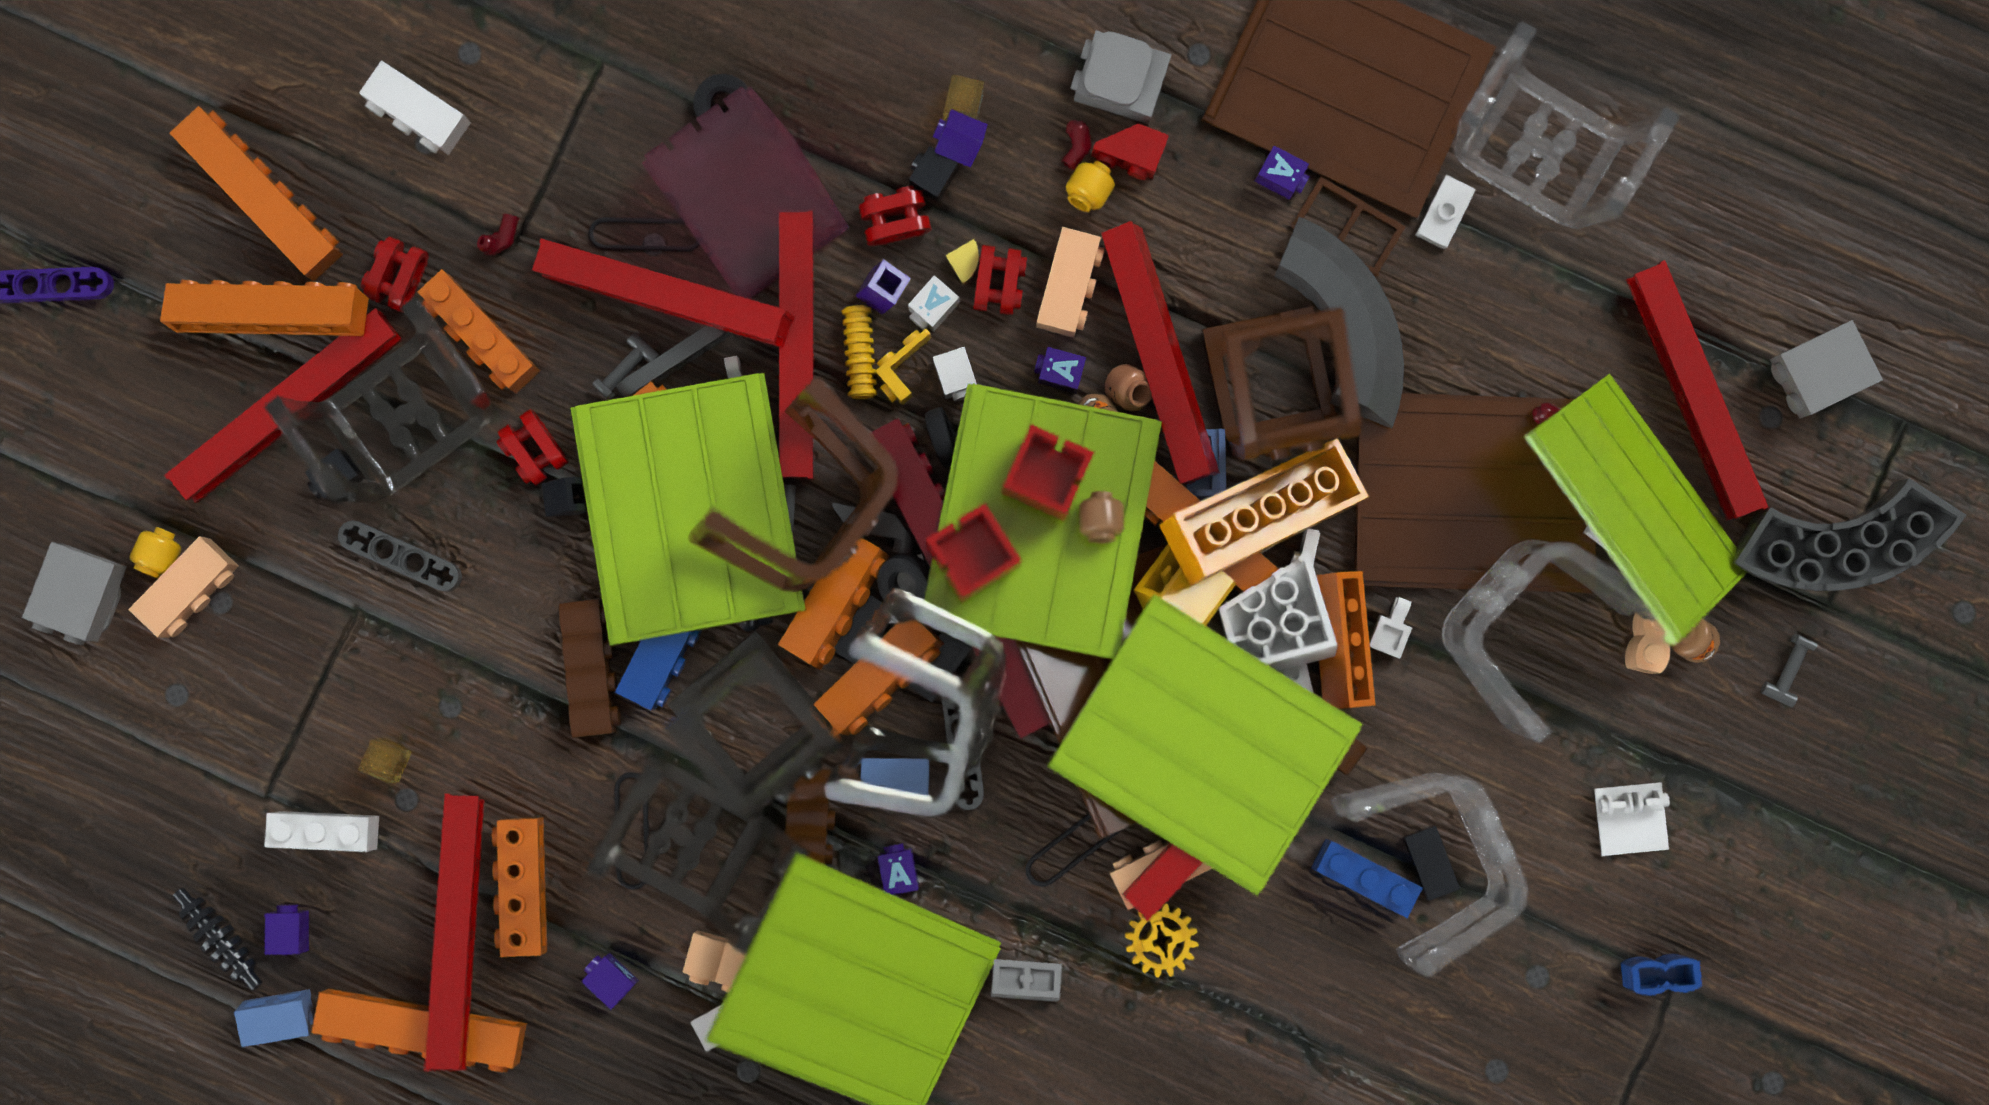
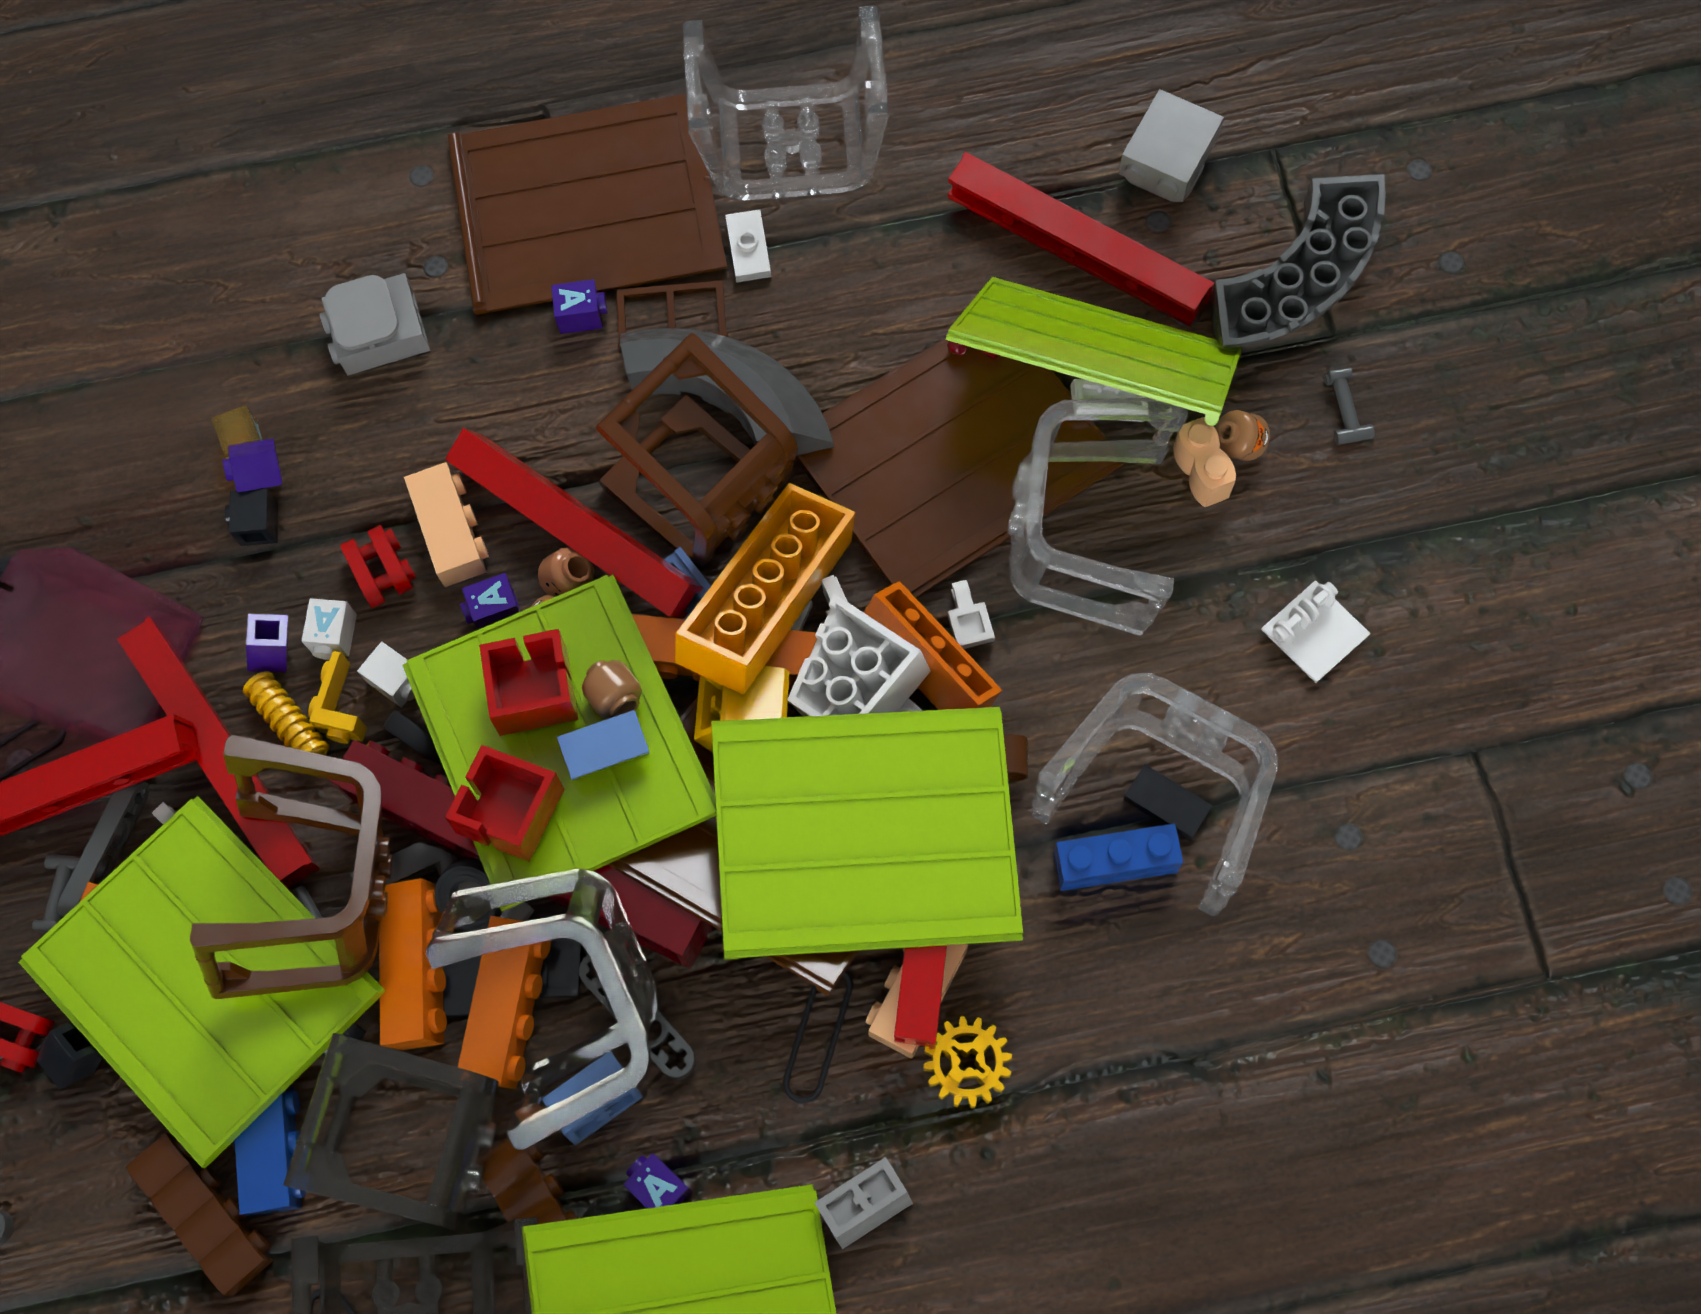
camera: 30 degrees left, 15 degrees down
(906, 201) = (240, 577): red brick -> none
(964, 261) = (335, 573): light yellow tile -> none
(1067, 556) = (603, 744): none -> medium blue hinge
(1081, 143) = (376, 402): dark red arm -> none
(1090, 186) = (408, 430): yellow head -> none
(1133, 149) = (426, 375): red slope -> none
(1665, 972) = (1455, 745): blue brick -> none

